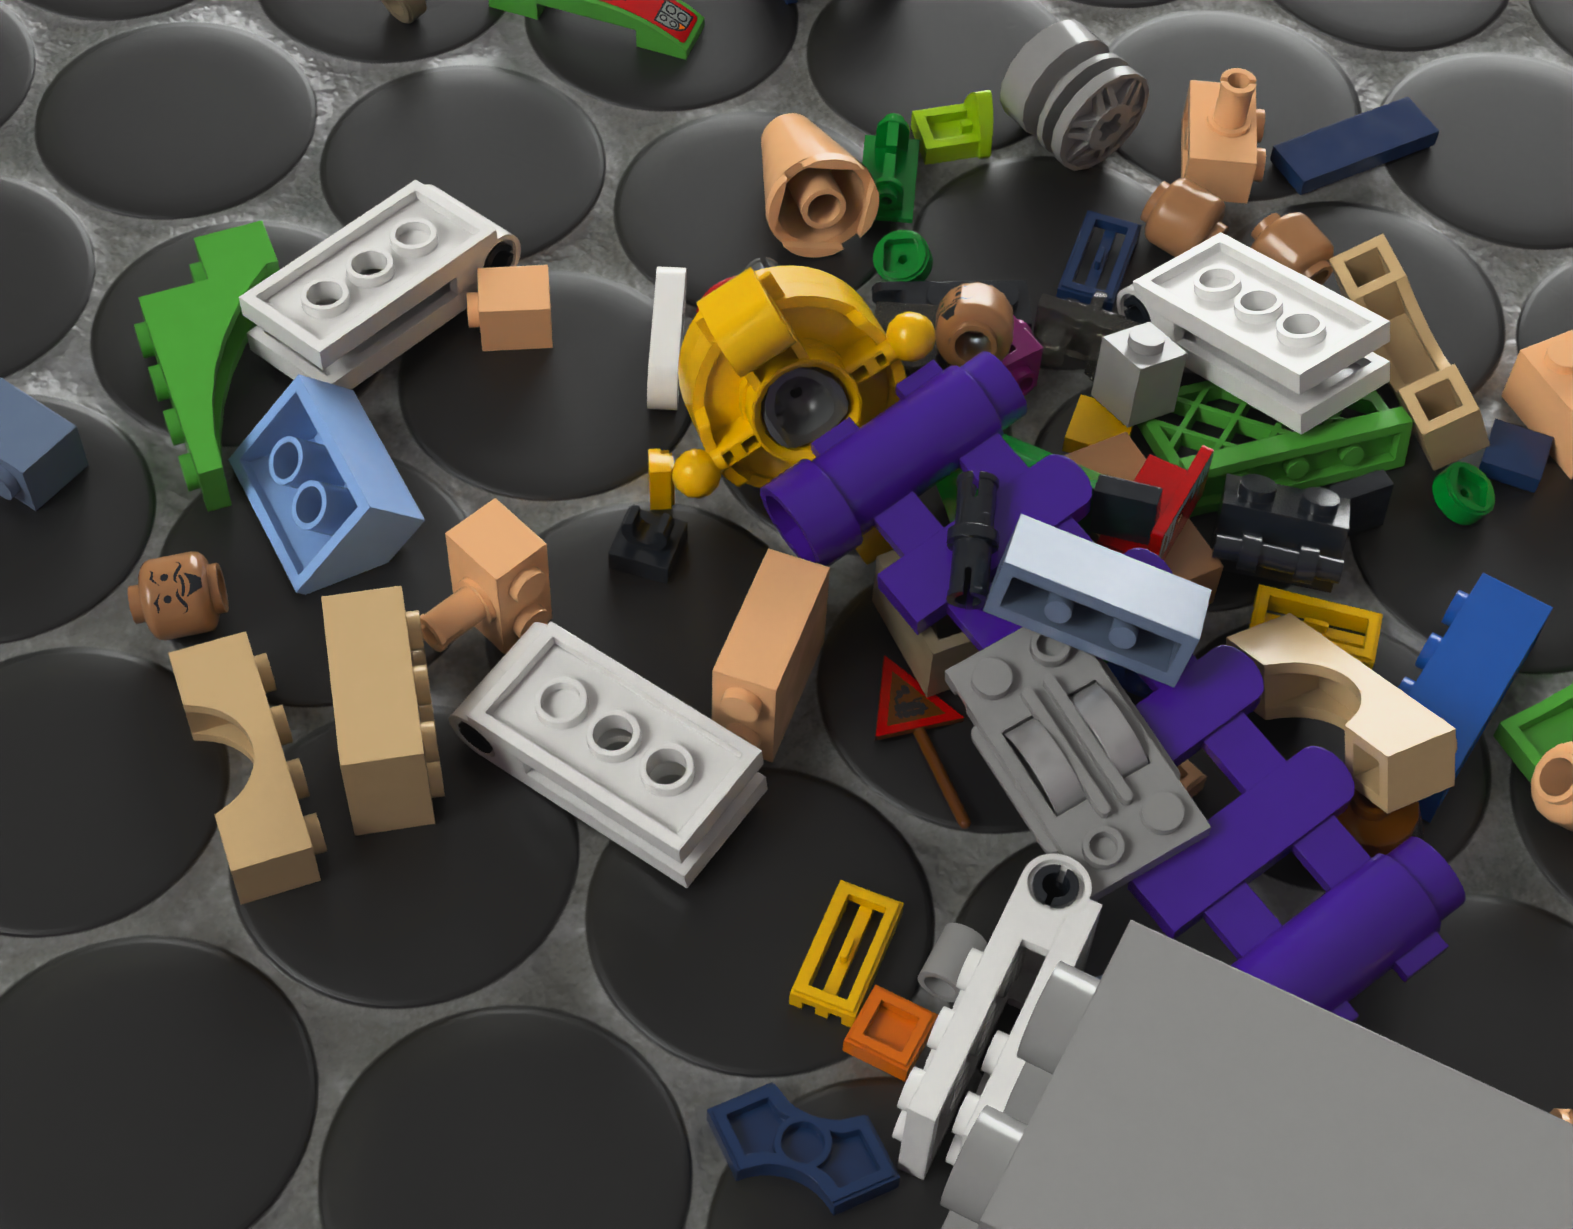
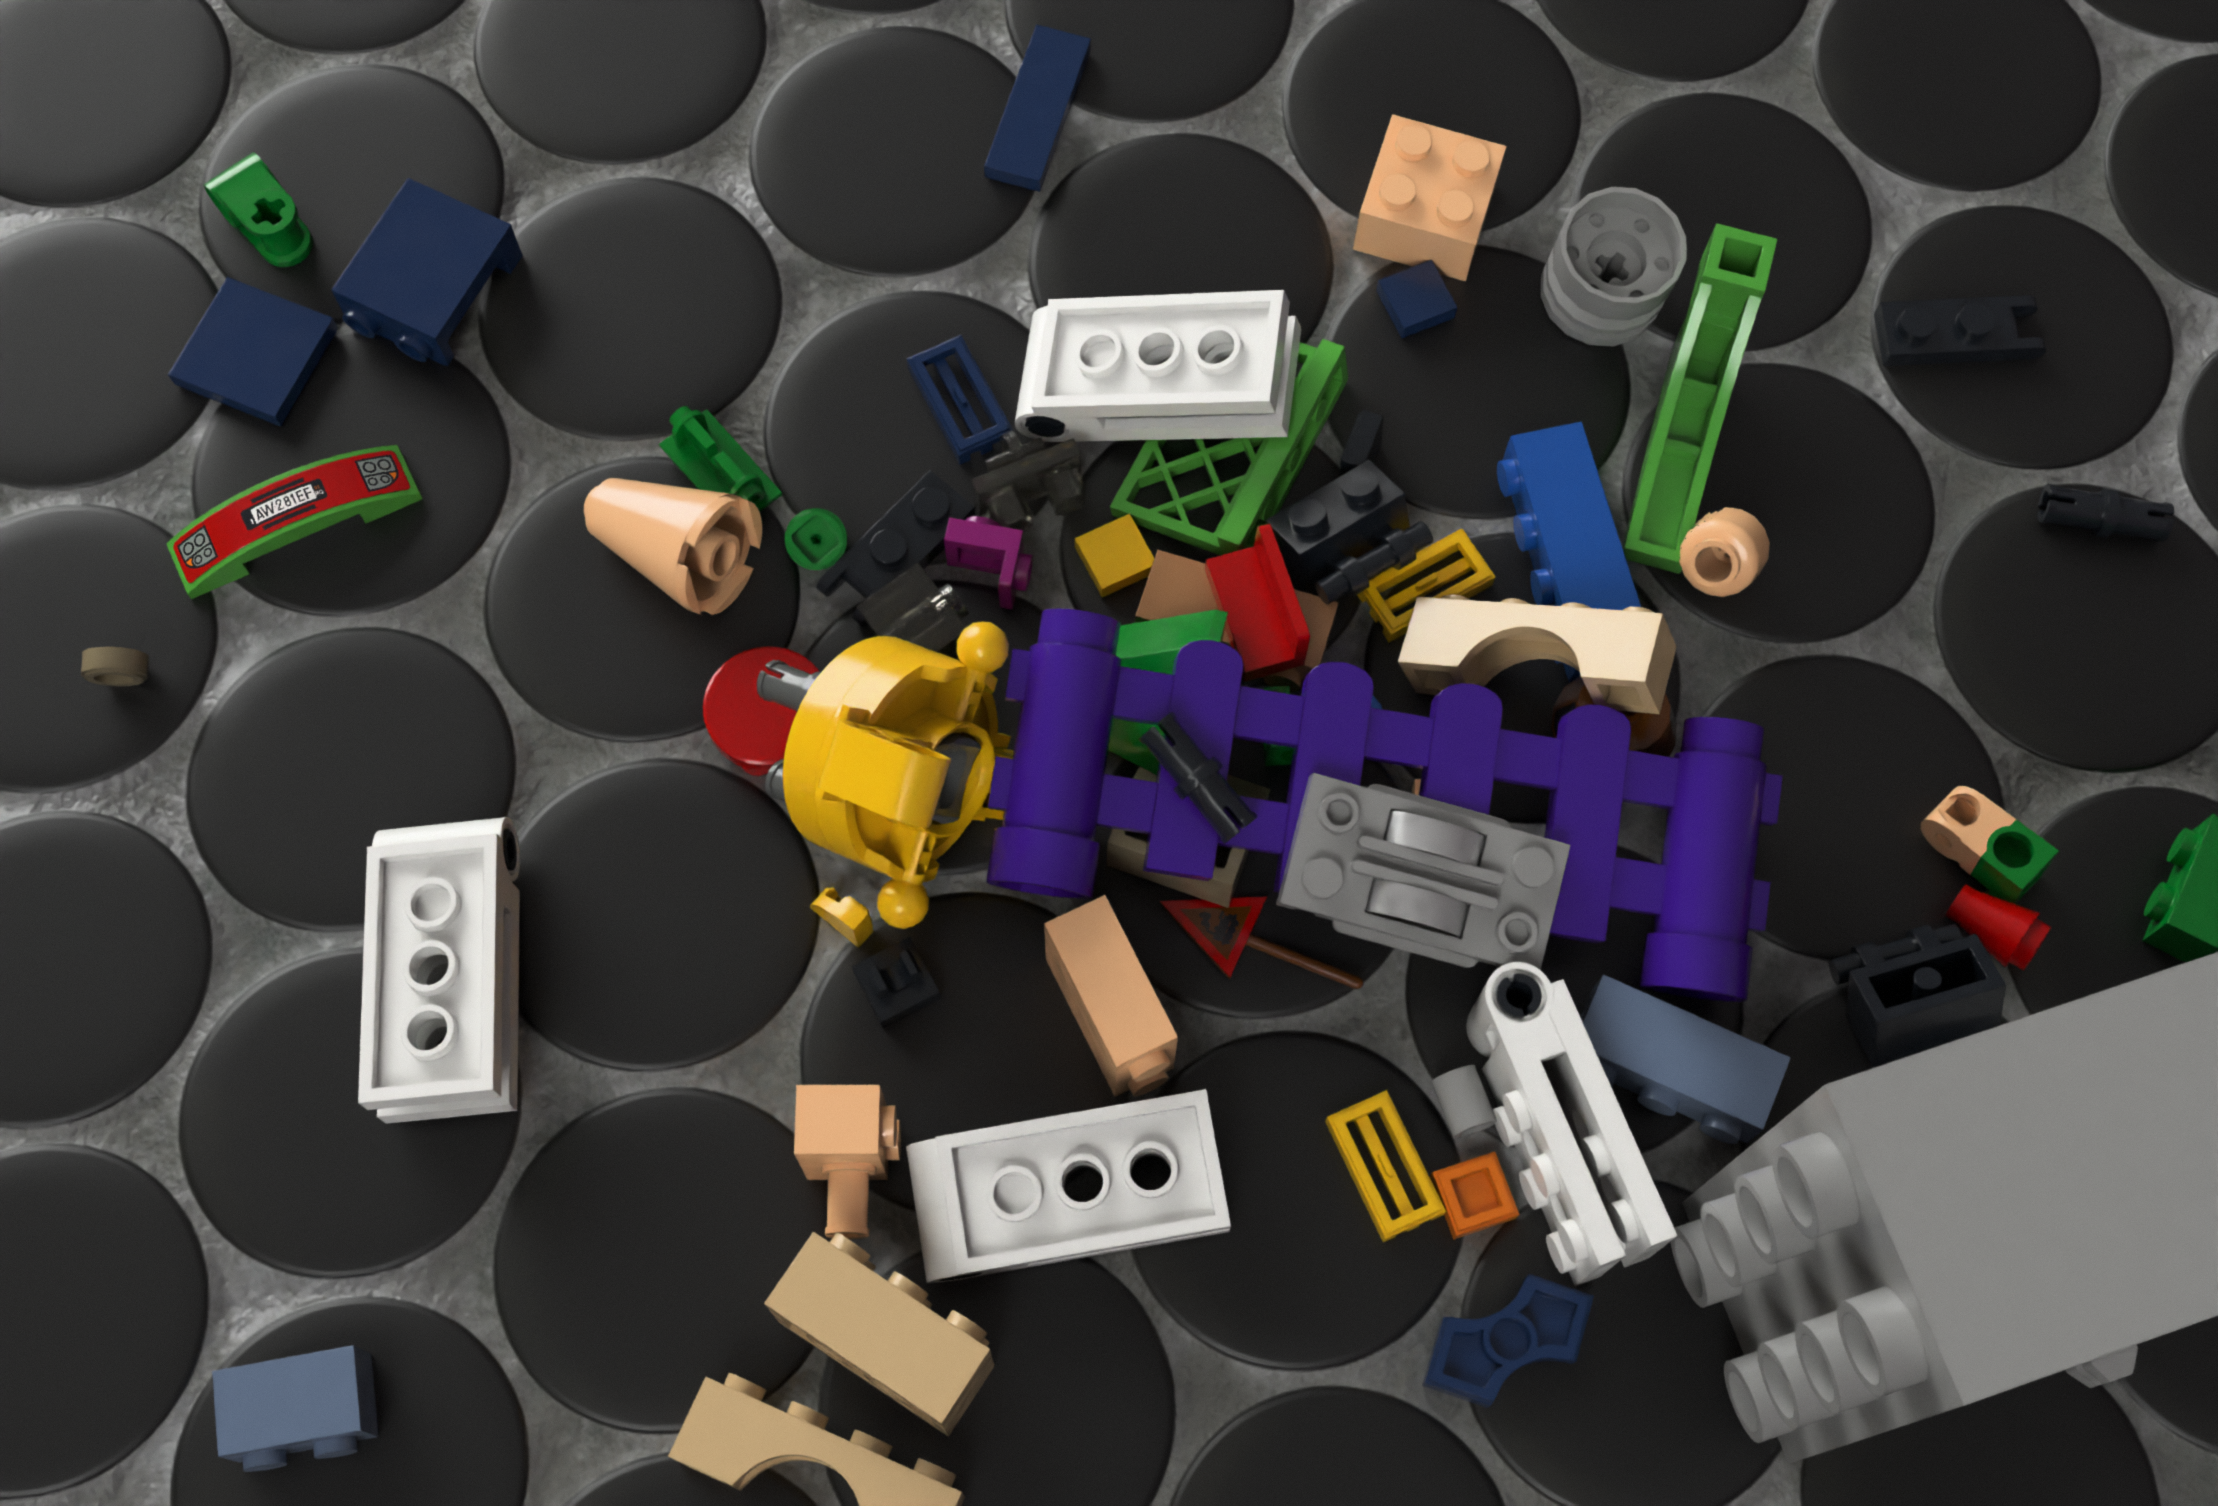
camera: 45 degrees left, 15 degrees up
(179, 595) = (604, 1396): medium nougat head -> none
(198, 343) = (340, 1165): bright green arch -> none
(324, 486) = (601, 1186): light blue slope -> none
(512, 308) = (565, 880): light nougat brick -> none
(666, 338) = (716, 788): white beam -> none
(956, 129) = (724, 372): lime tile -> none
(972, 321) = (967, 567): medium nougat head -> none
(1074, 94) = (793, 262): light grey wheel -> none
(1098, 600) = (1347, 750): sand blue brick -> none
(1125, 509) = (1258, 631): black tile -> none
(1138, 374) = (1114, 487): light grey brick -> none
(1182, 216) = (994, 303): medium nougat head -> none
(1222, 135) = (943, 198): light nougat brick -> none
(1295, 244) = (1101, 261): medium nougat head -> none
(1420, 376) = (1238, 262): tan arch -> none
(1463, 493) = (1417, 368): green tile -> none

